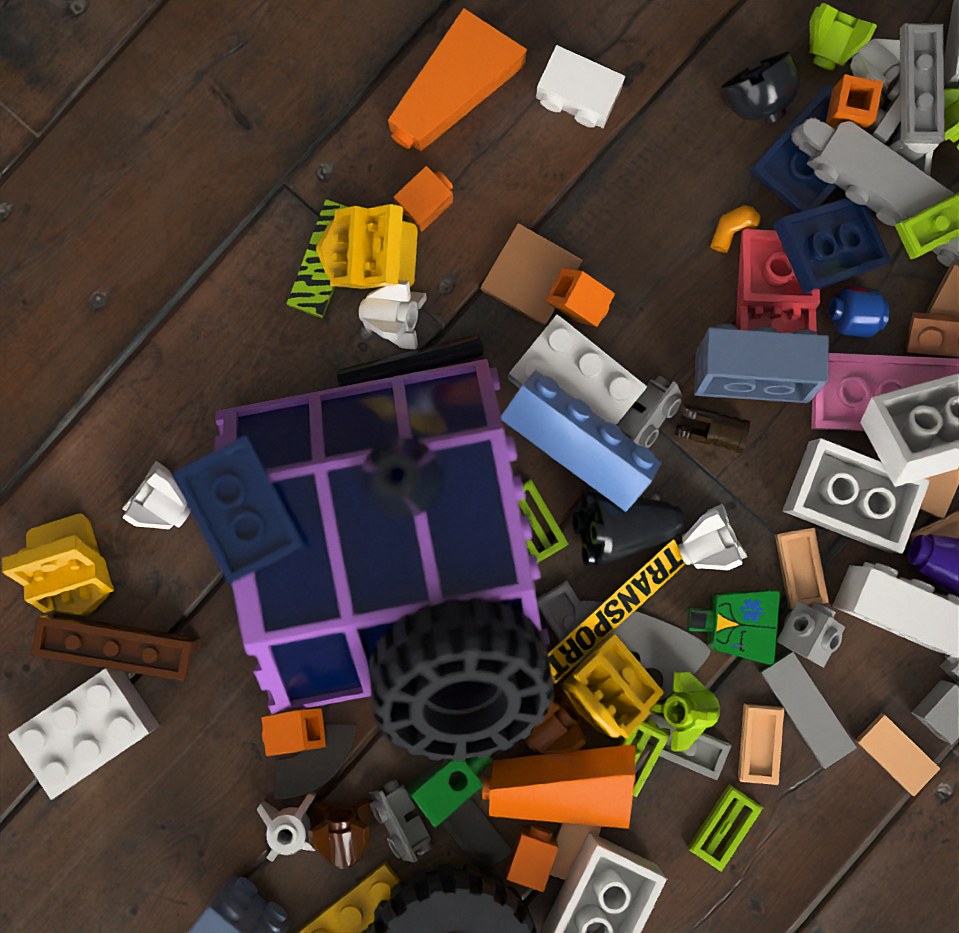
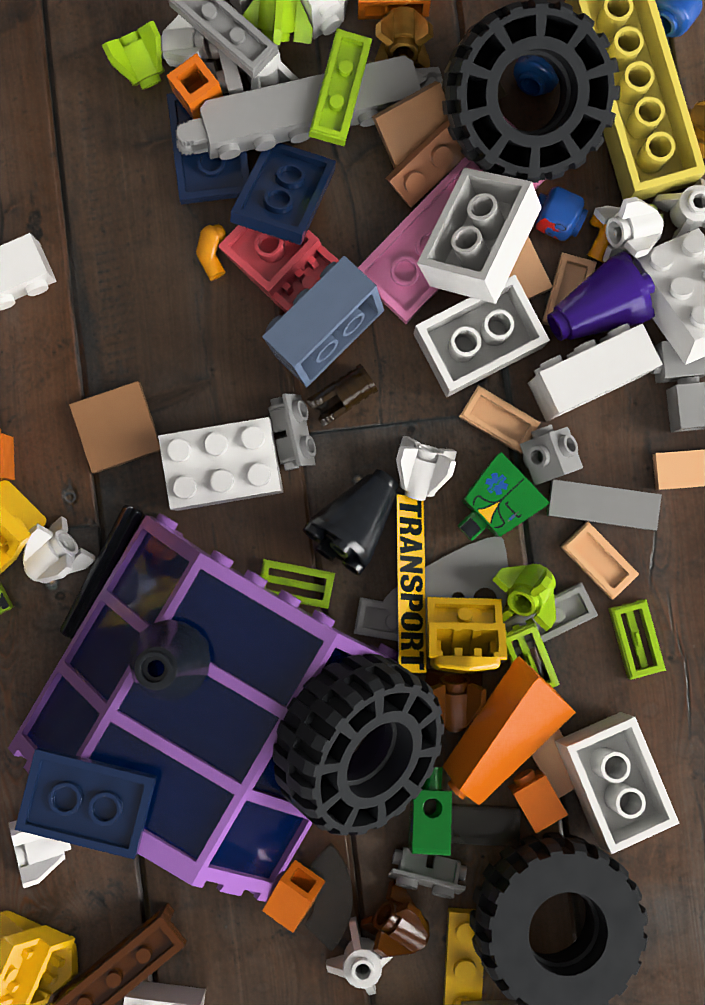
camera: 50 degrees left, 0 degrees up
(580, 297) = (162, 407): orange brick -> none
(581, 440) = (262, 500): medium blue brick -> none
(764, 89) = (130, 141): black cylinder -> none
(858, 311) = (350, 216): blue head -> none

